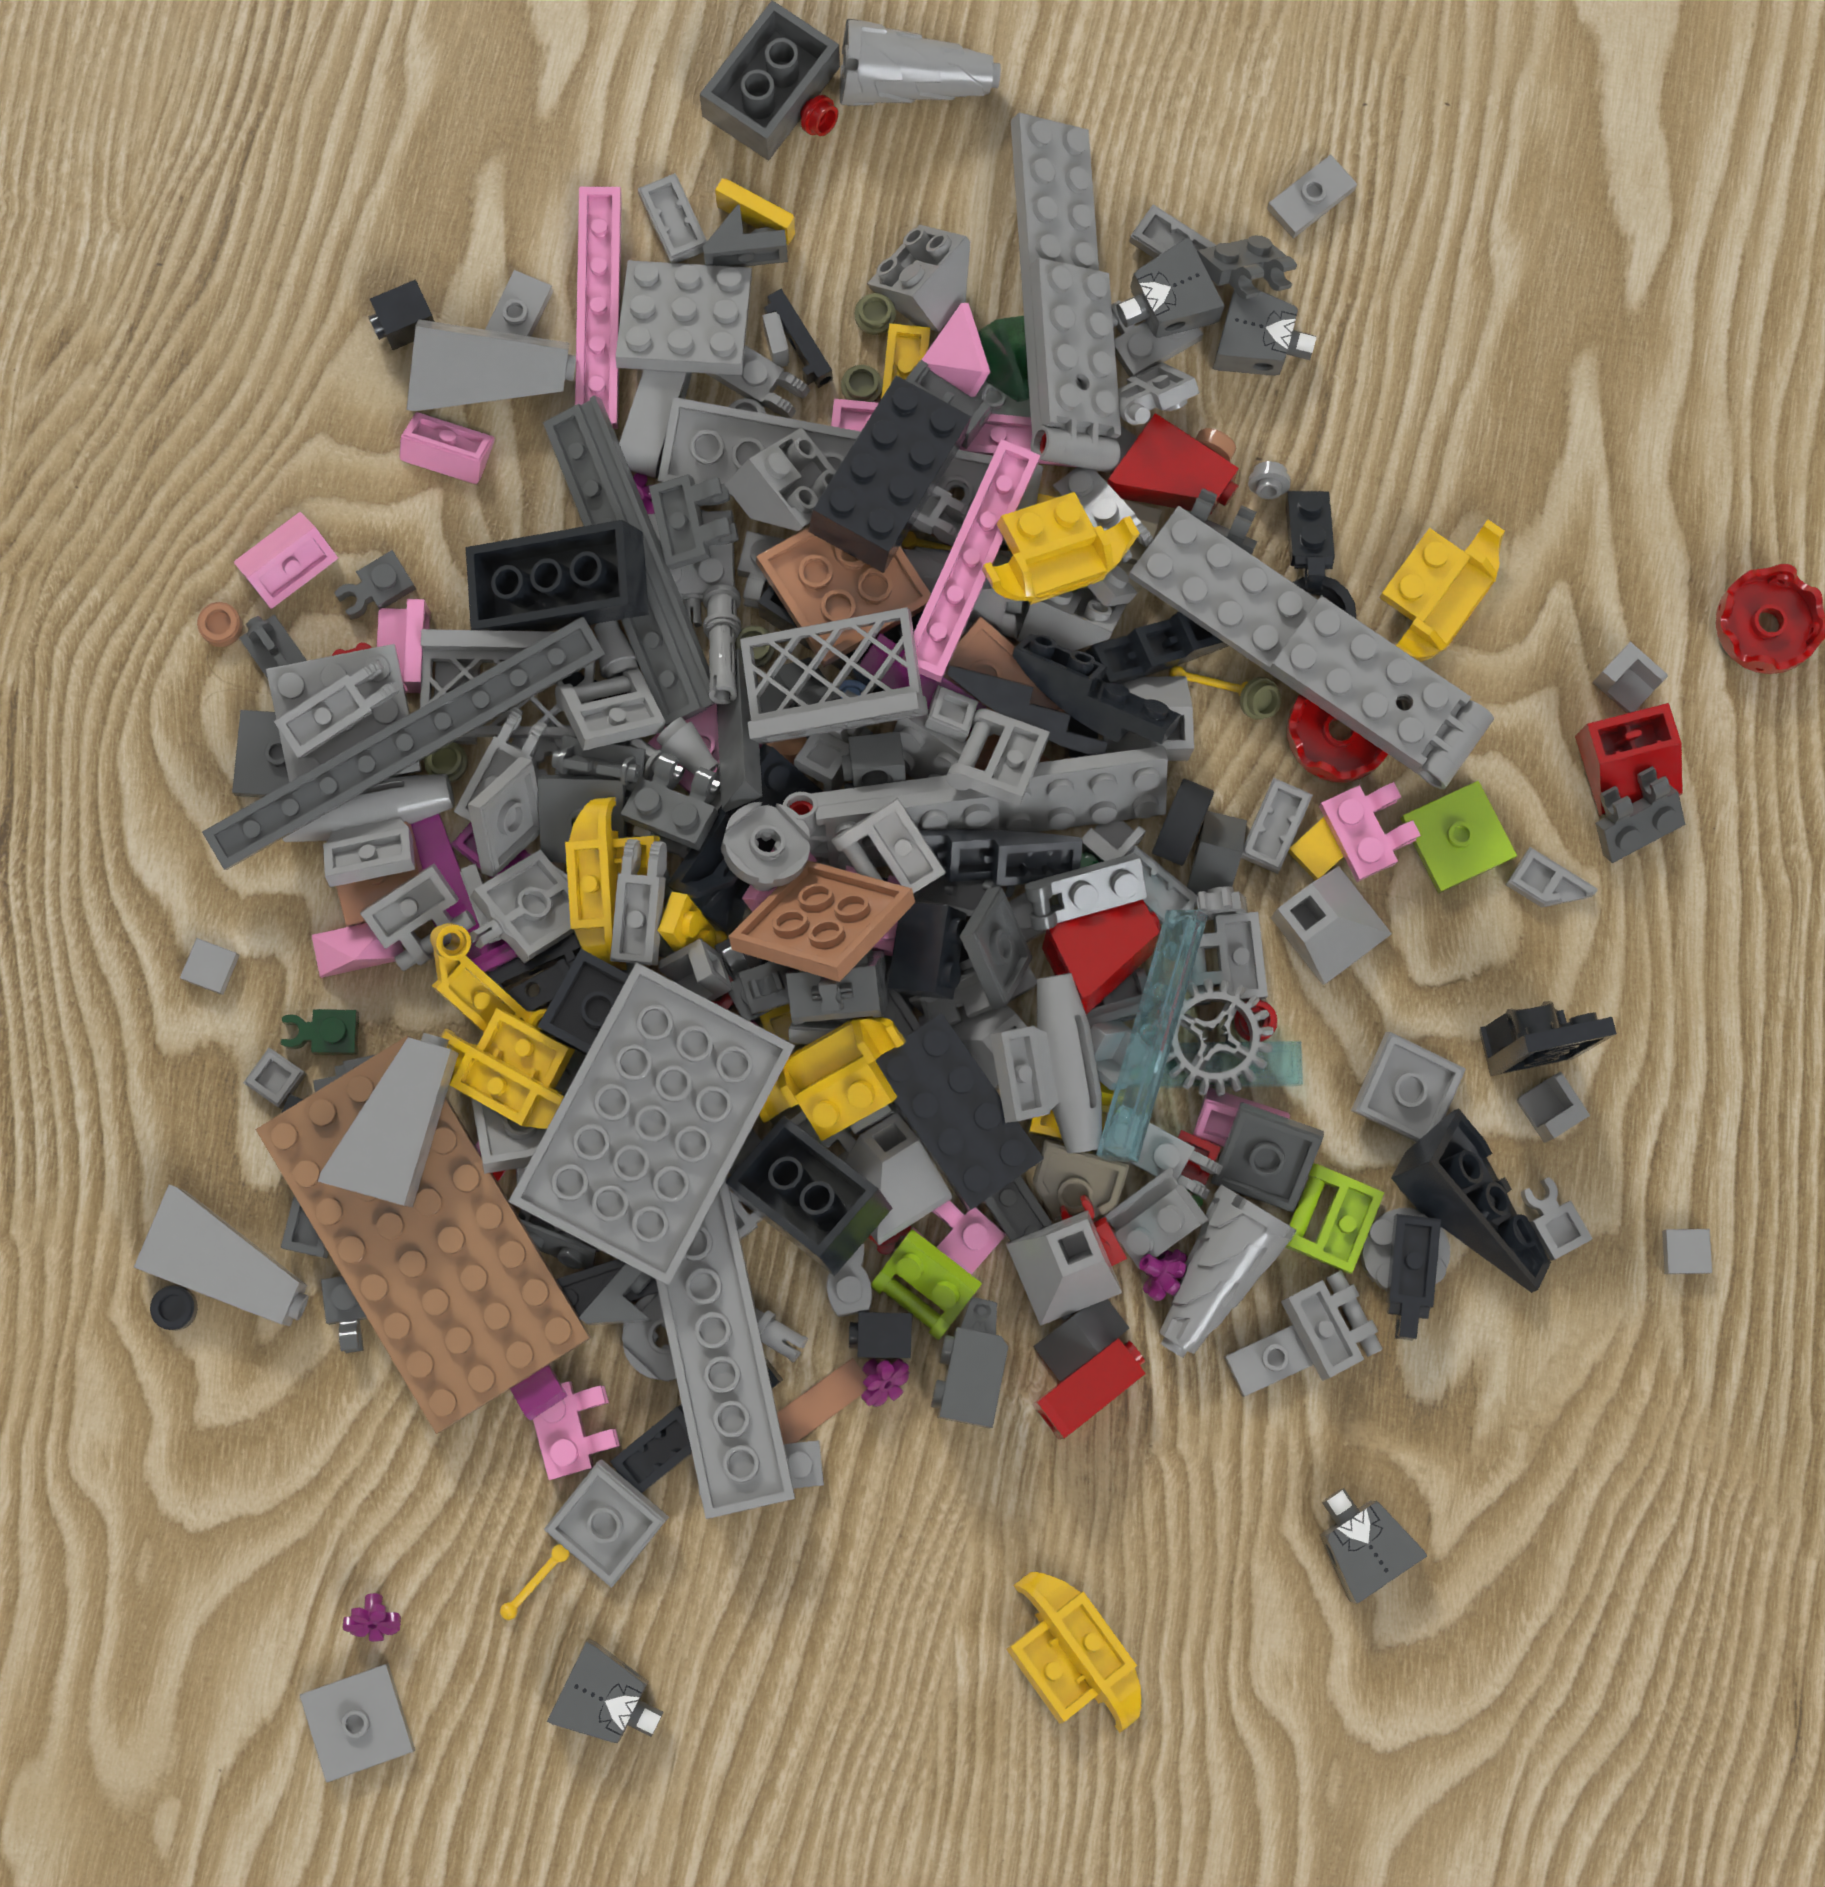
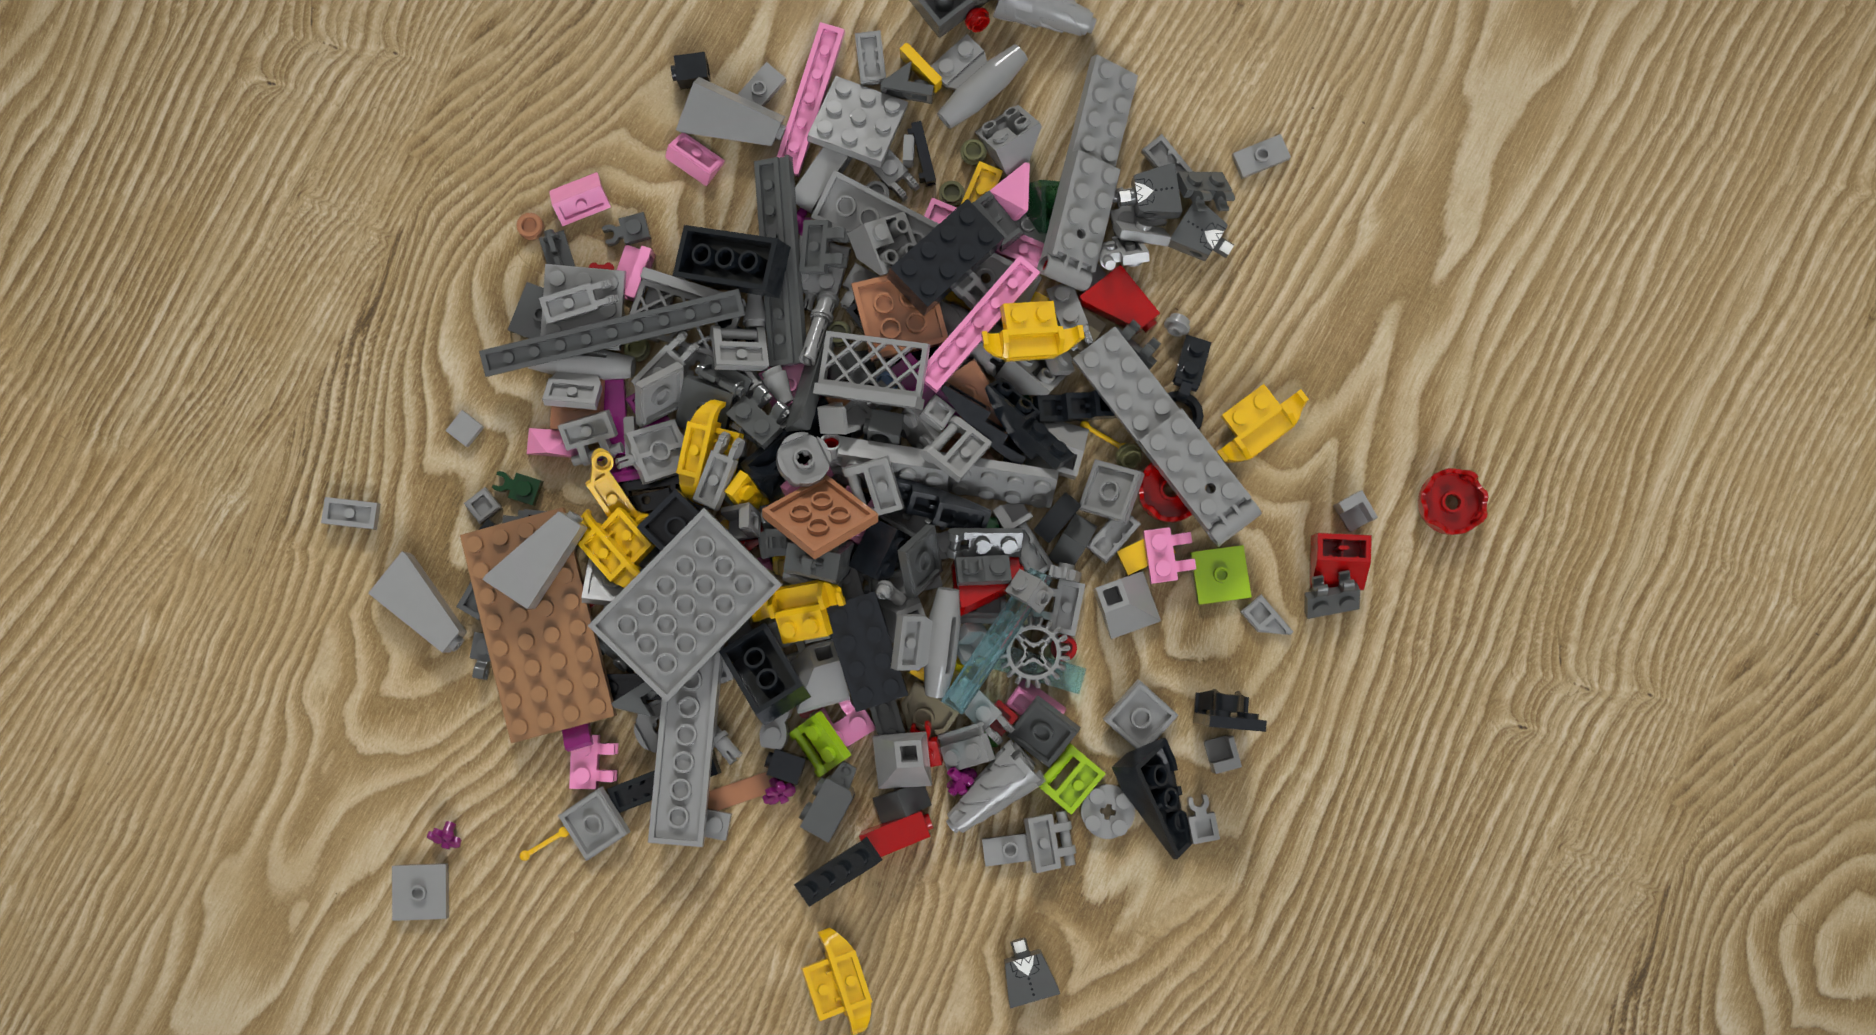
camera: 25 degrees right, 5 degrees up
(65, 1153) = (350, 513): none -> light grey plate
(173, 1308) = (386, 622): black tile -> none
(604, 1697) = (562, 922): dark grey torso -> none
(796, 770) = (834, 419): none -> light grey panel
(842, 203) = (974, 78): none -> light grey plate
(959, 1008) = (886, 589): none -> light grey arm
(1020, 1472) = (838, 871): none -> black plate
(1097, 933) = (983, 570): none -> dark grey plate
(1171, 356) = (1141, 232): none -> light grey plate
(1179, 941) = (1030, 590): none -> light grey bracket
(1217, 442) = (1152, 293): nougat tile -> none
(1251, 758) = (1111, 491): none -> light grey plate
(1412, 1272) = (1105, 826): black hinge -> none
(1687, 1251) = (1274, 863): light grey tile -> none

